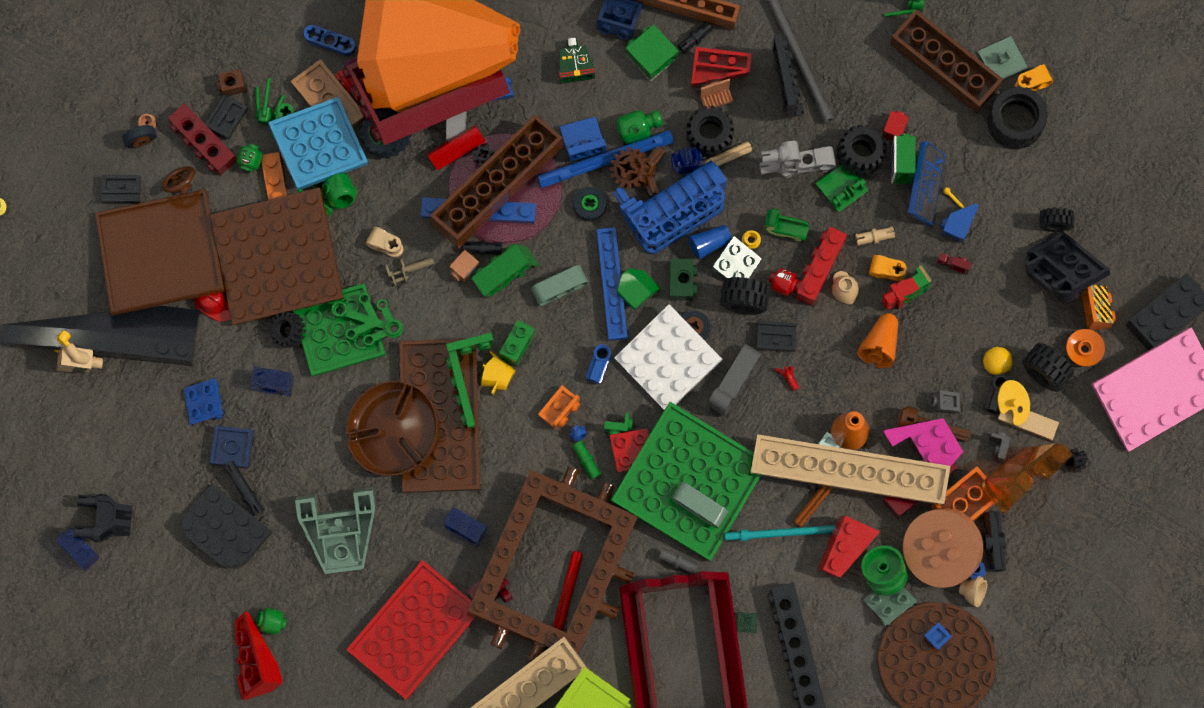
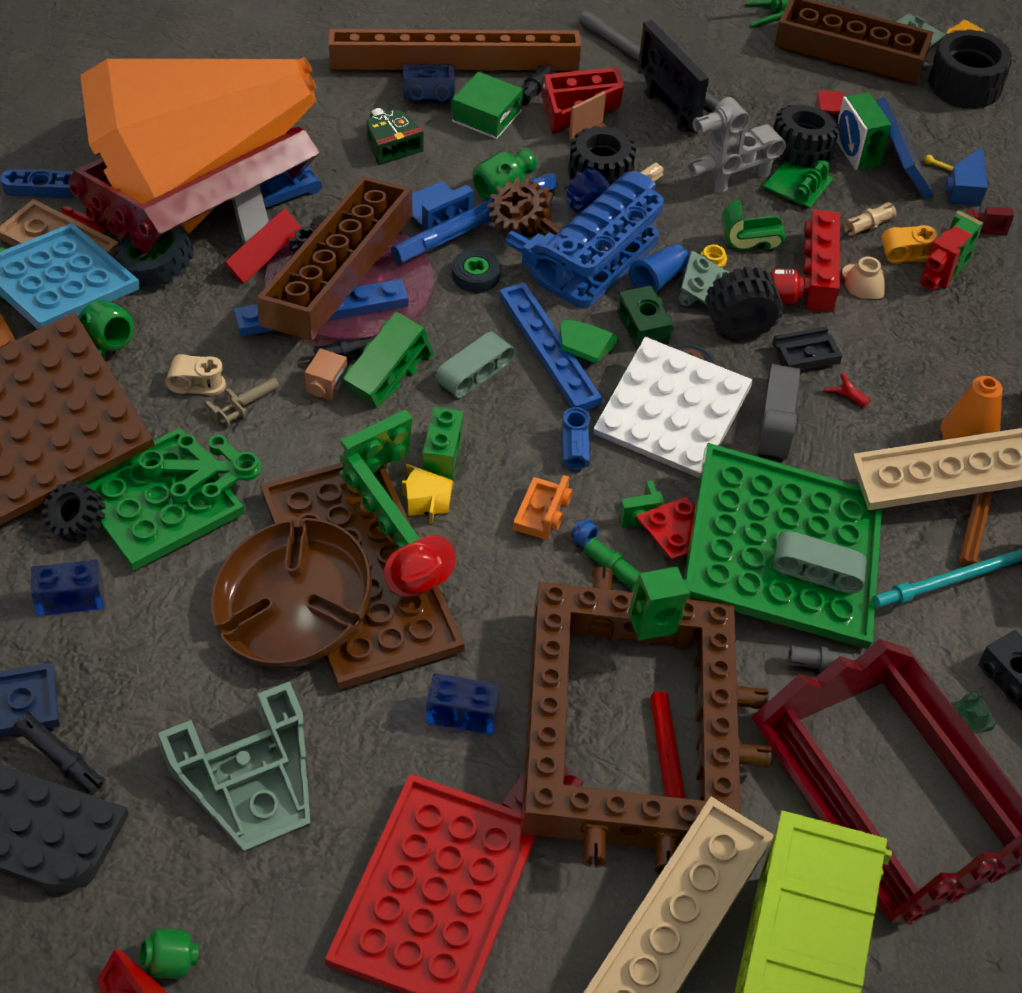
camera: 25 degrees left, 25 degrees down
(469, 435) = (419, 566): none -> red piece
(584, 513) = (658, 603): none -> green brick
(880, 342) = (953, 321): orange cone -> none

